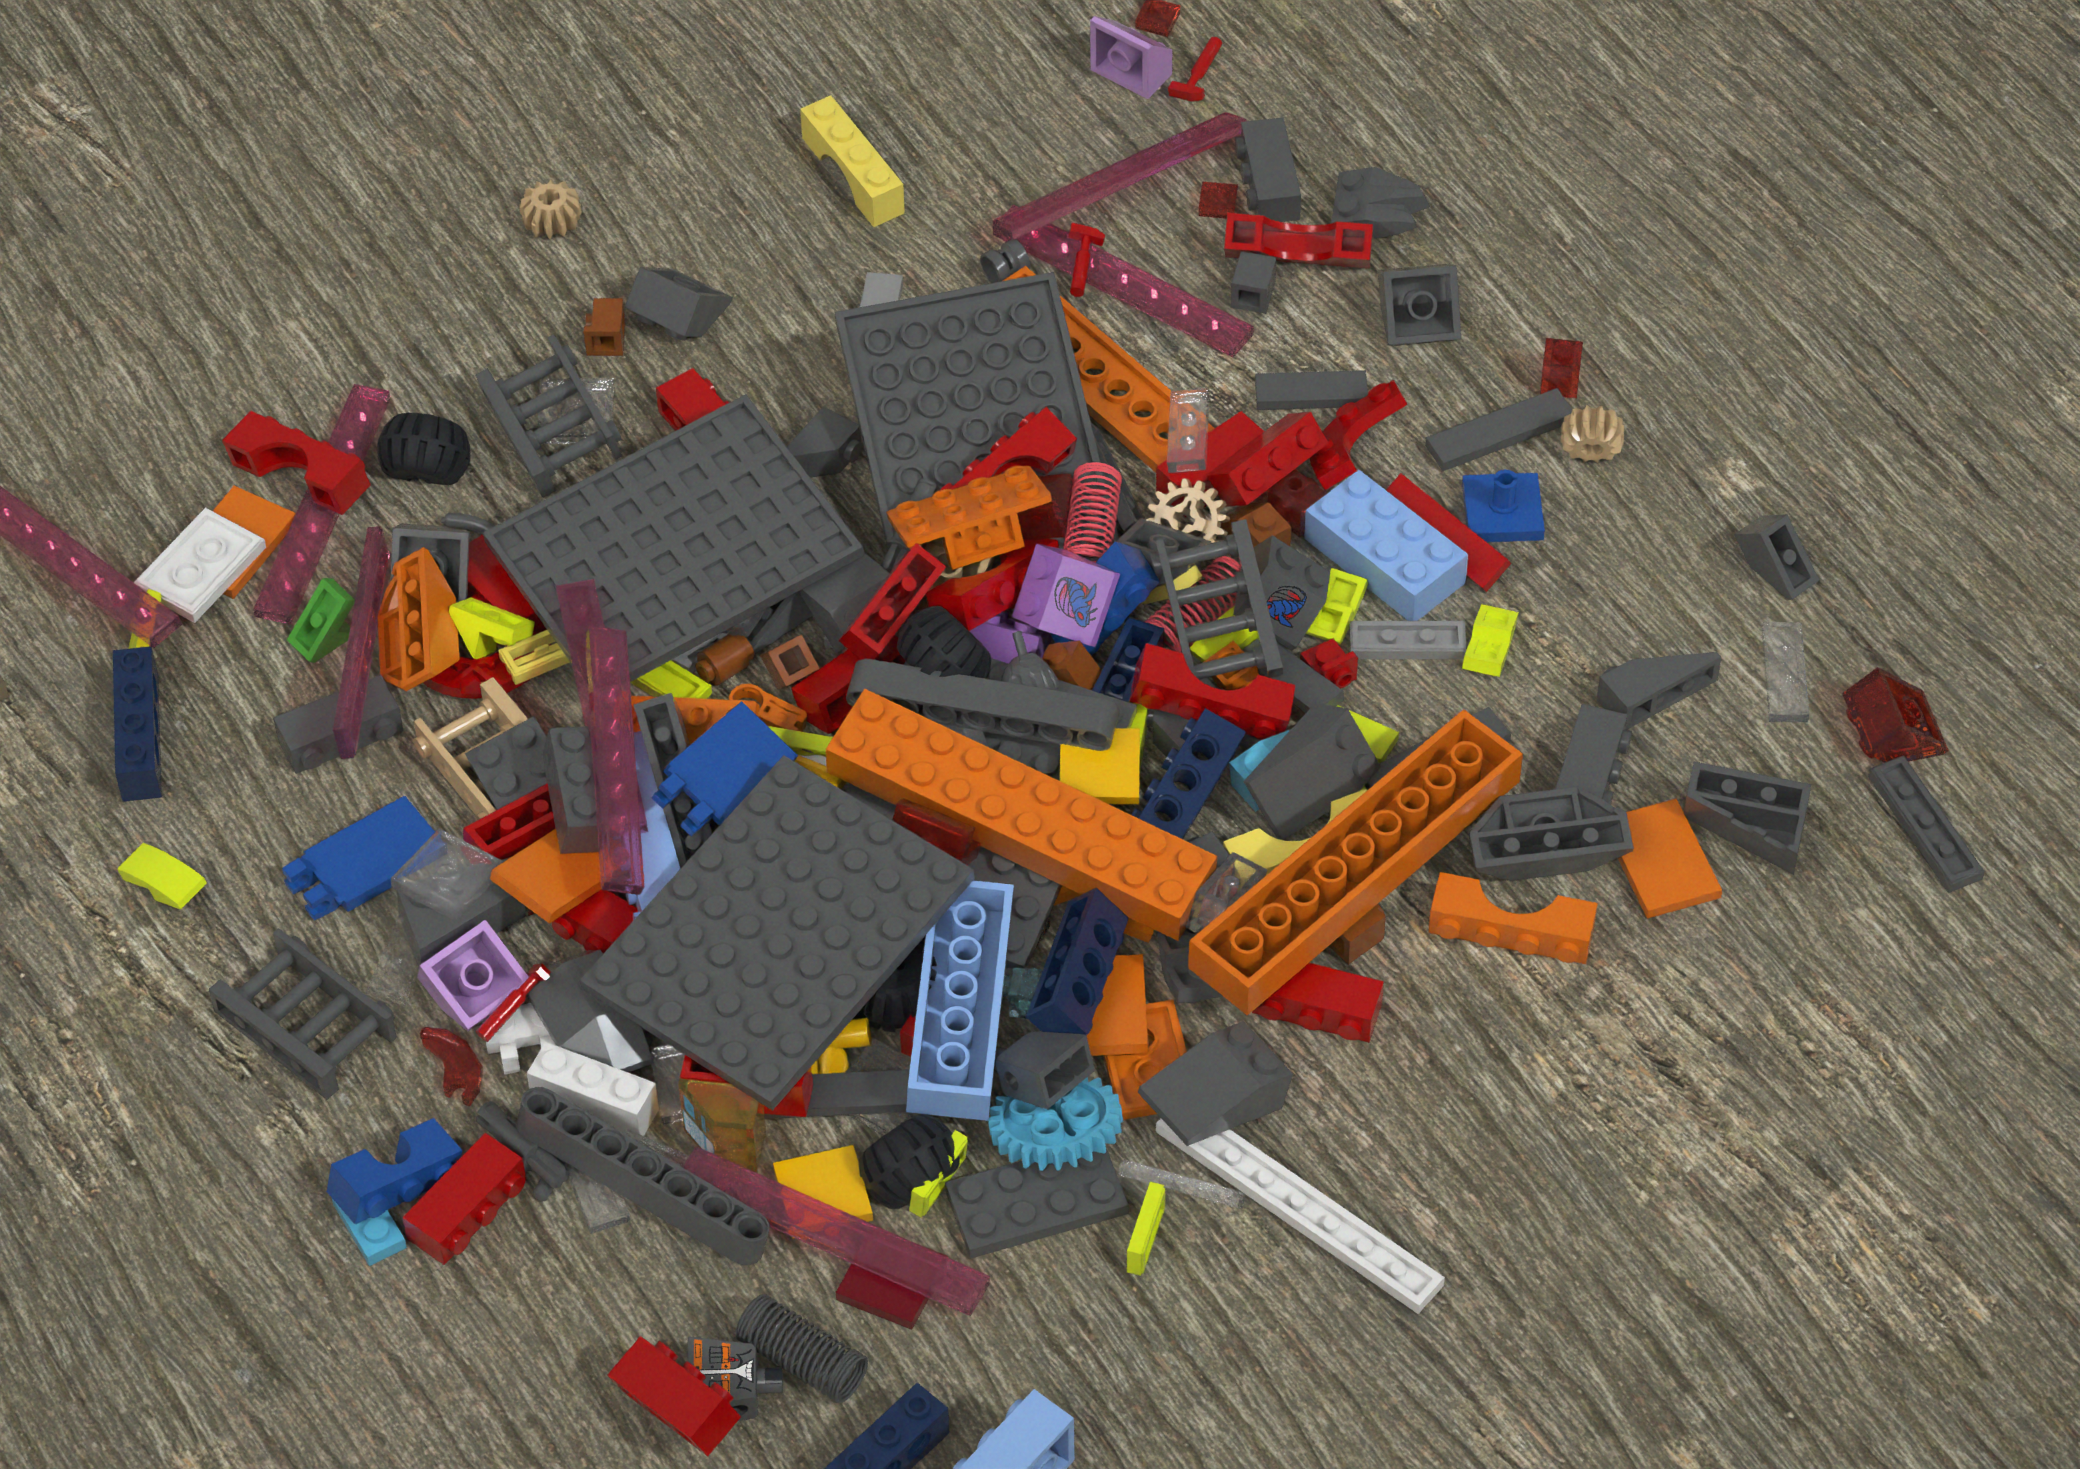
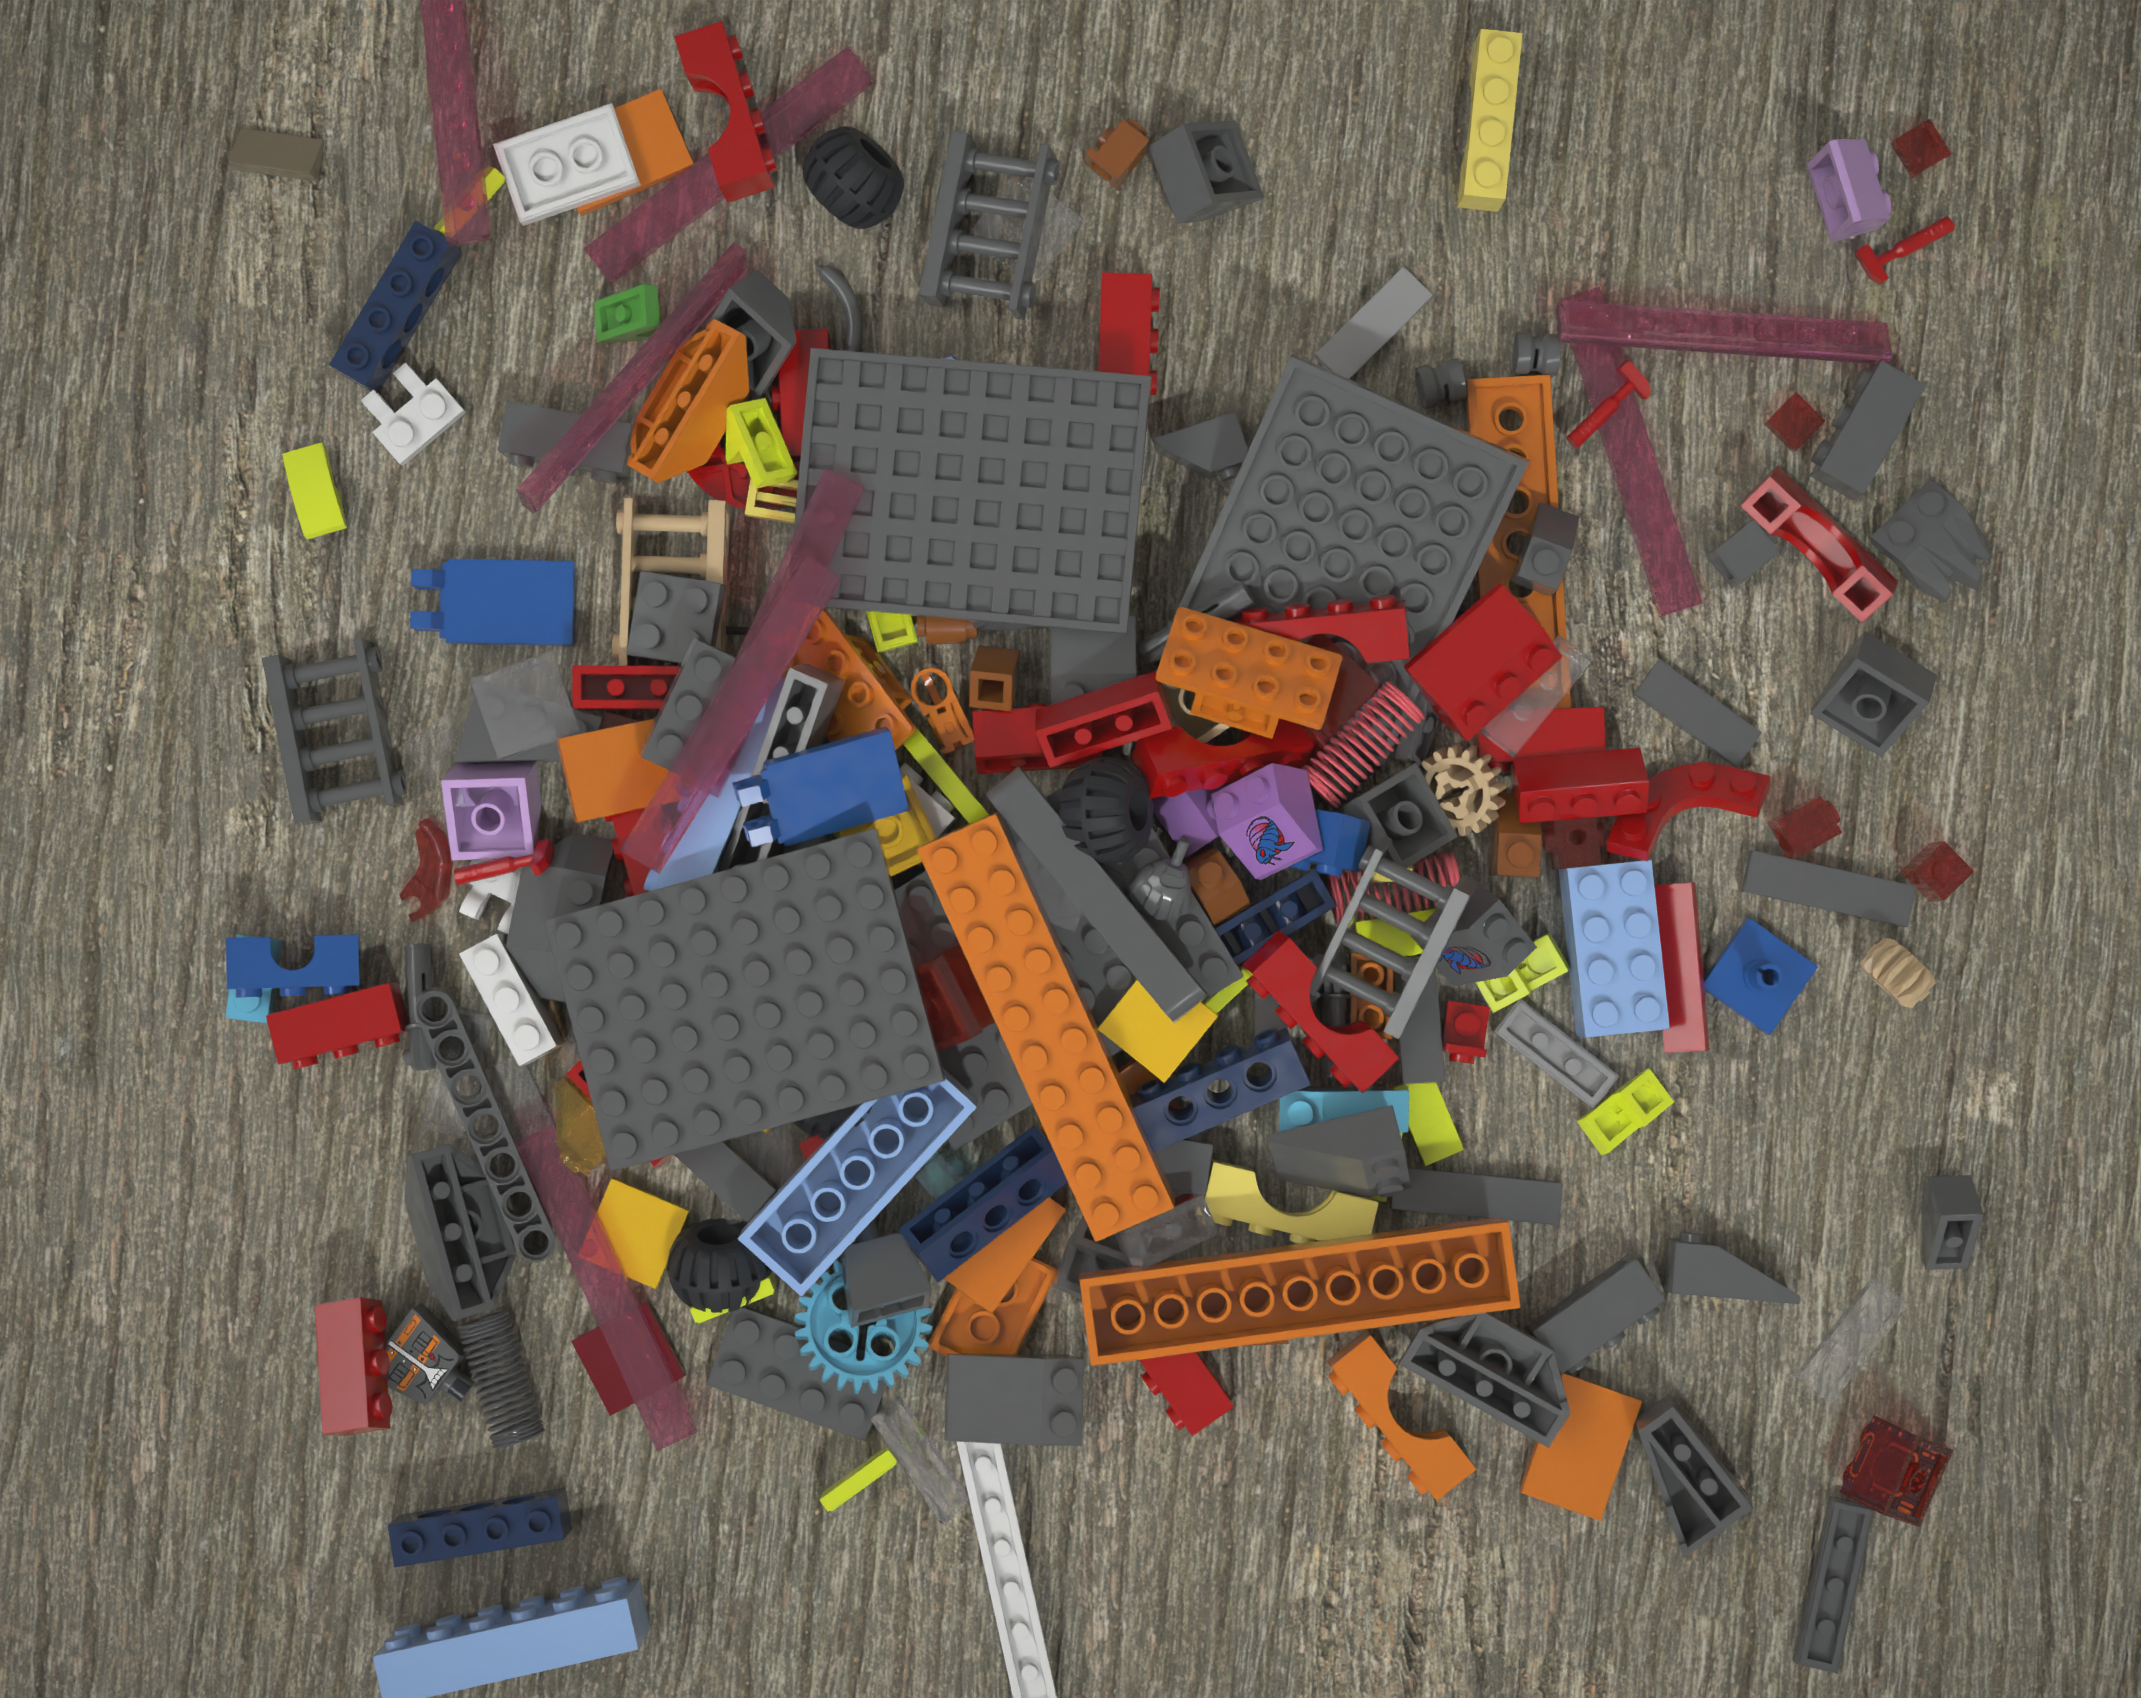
camera: 30 degrees right, 35 degrees up
(209, 788) = (418, 421): none -> white plate
(671, 1267) = (457, 1230): none -> dark grey wedge
(1118, 355) = (1546, 550): none -> dark grey slope
(1132, 425) = (1482, 662): none -> red slope
(1447, 400) = (1805, 826): none -> clear red brick

